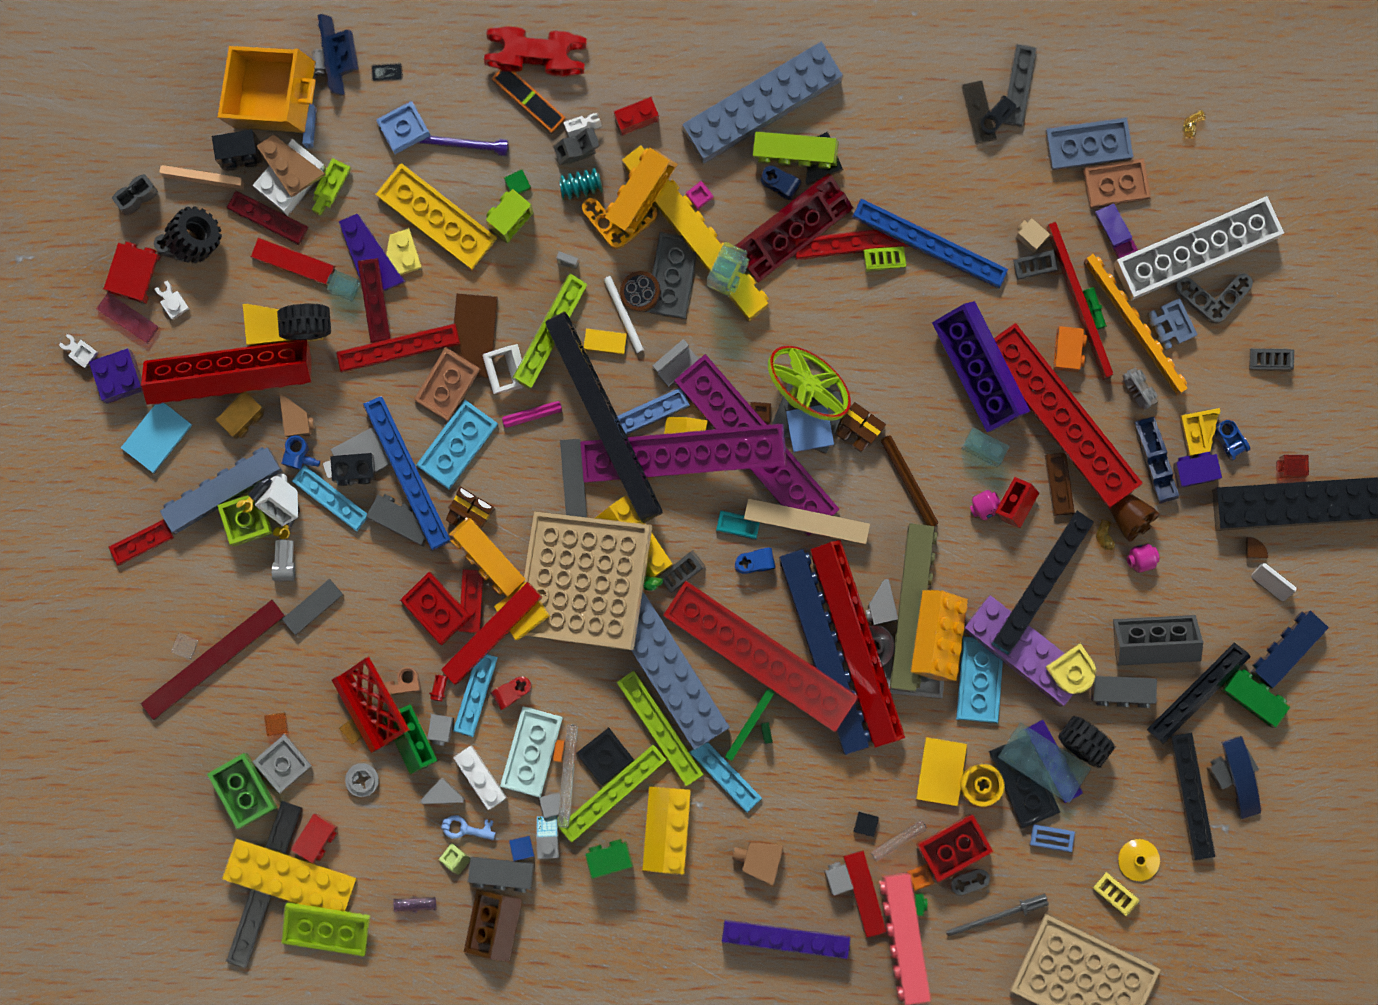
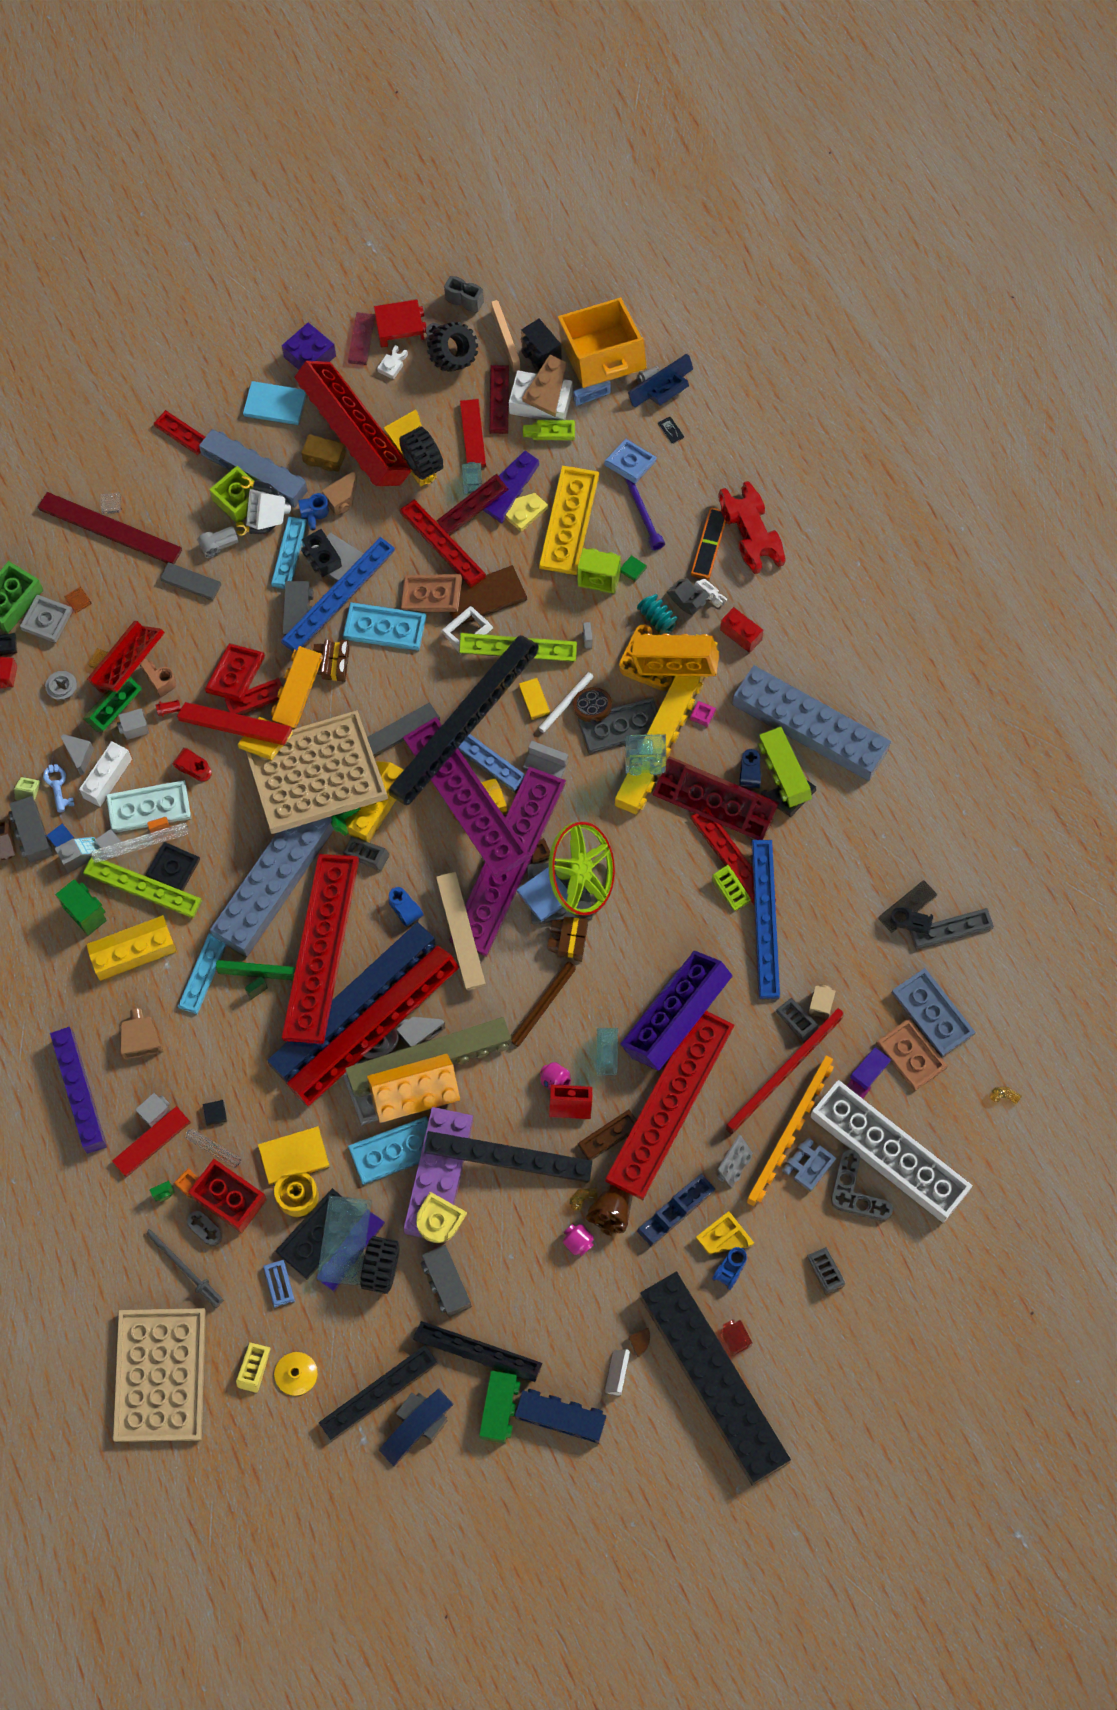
camera: 65 degrees right, 15 degrees down
(81, 352) = (316, 316): white plate -> none
(475, 696) = (176, 740): medium azure tile -> none
(532, 414) = (449, 679): dark pink axle -> none
(660, 728) = (218, 898): lime plate -> none
(736, 525) = (428, 872): teal tile -> none
(906, 938) = (123, 1190): coral brick -> none
(1069, 349) = (735, 1082): orange brick -> none
(1095, 308) = (785, 1088): green pin -> none
(1157, 640) = (508, 1289): dark grey slope -> none
(1197, 470) = (685, 1250): dark purple brick -> none

